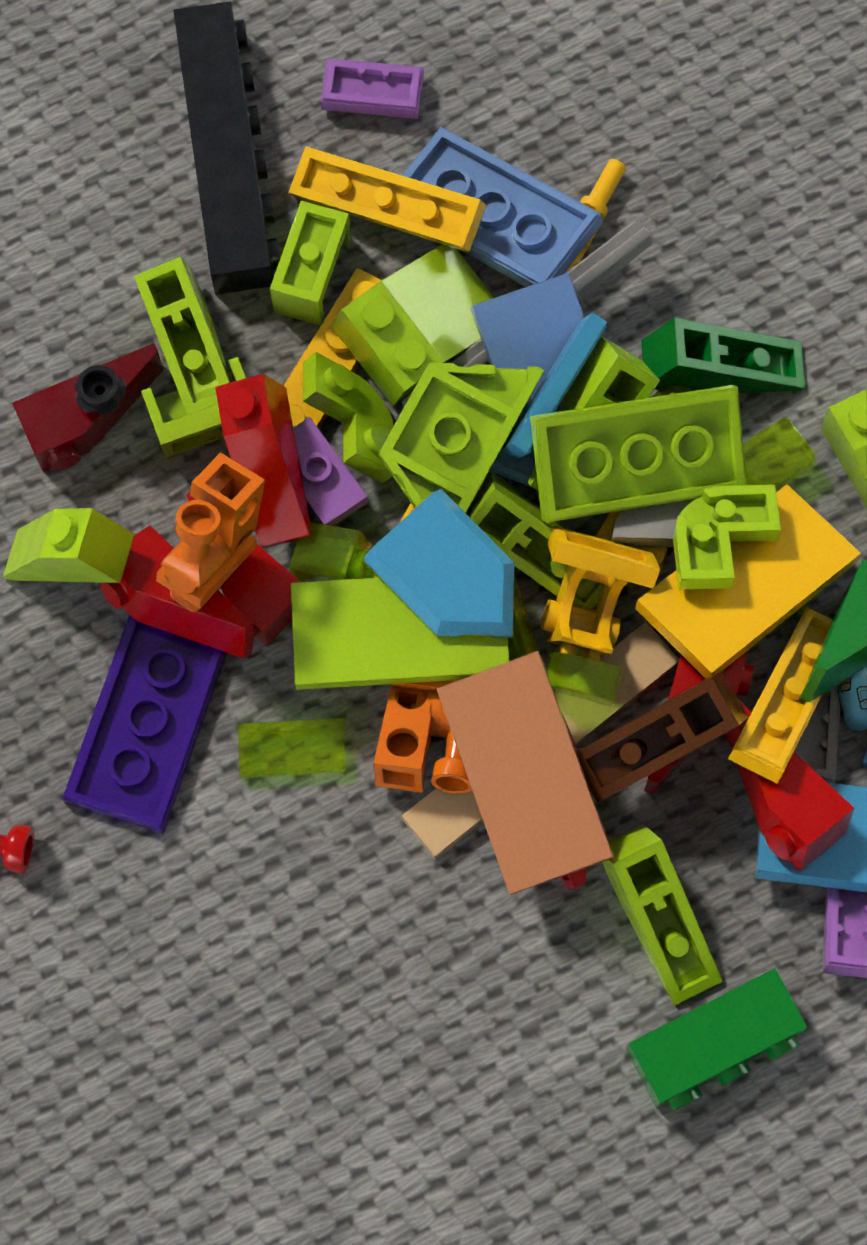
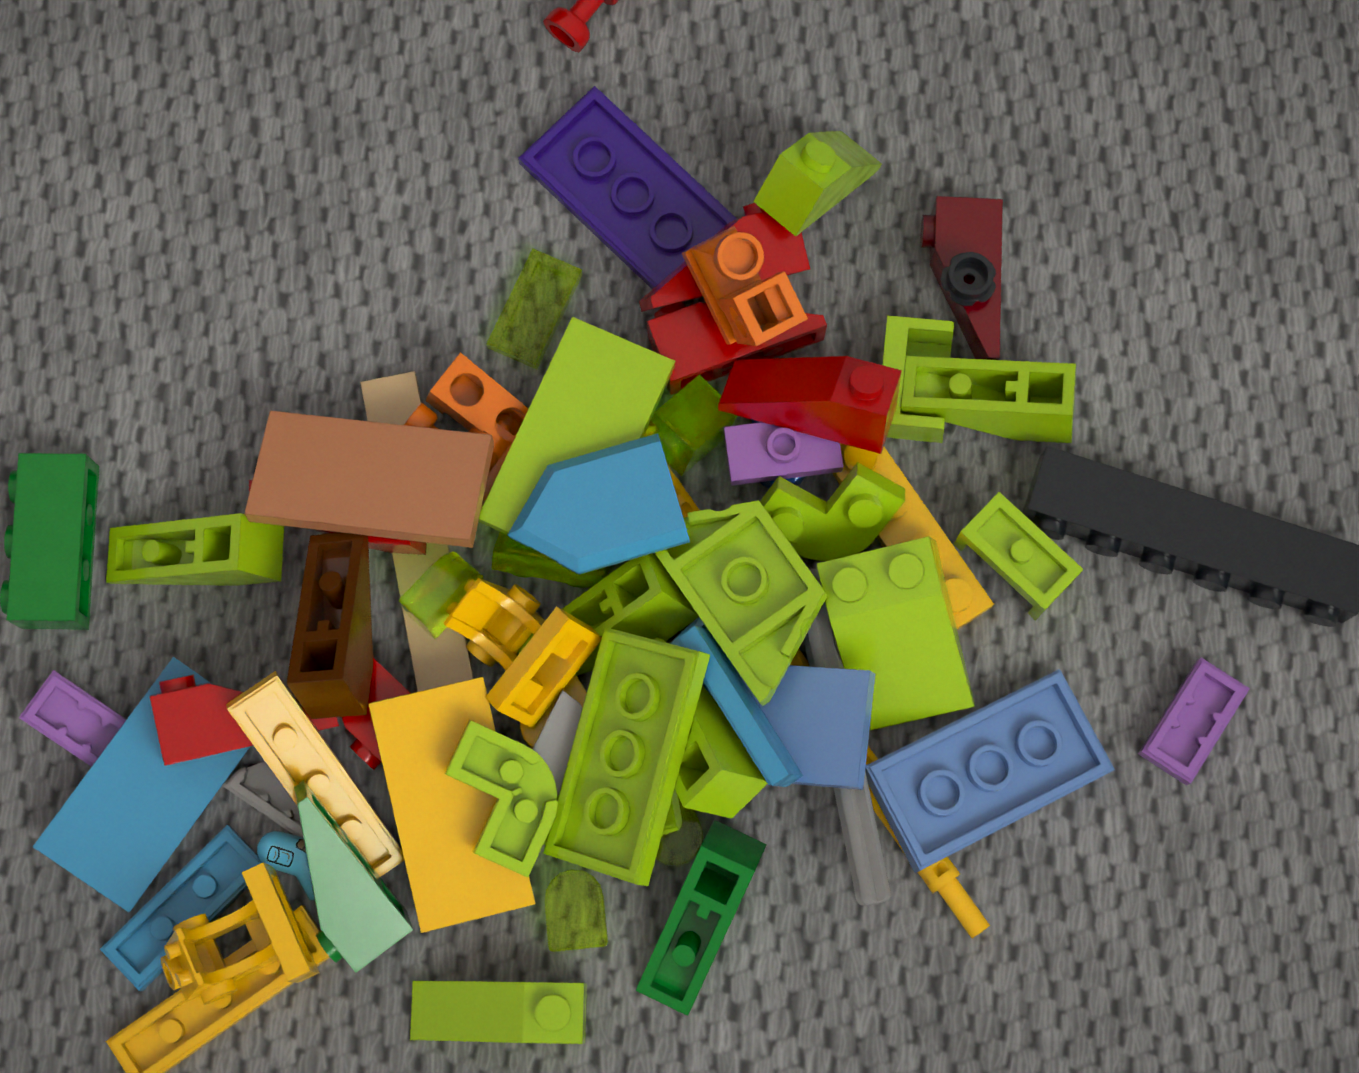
camera: 115 degrees right, 5 degrees up
(388, 199) = (1048, 664): yellow plate -> none

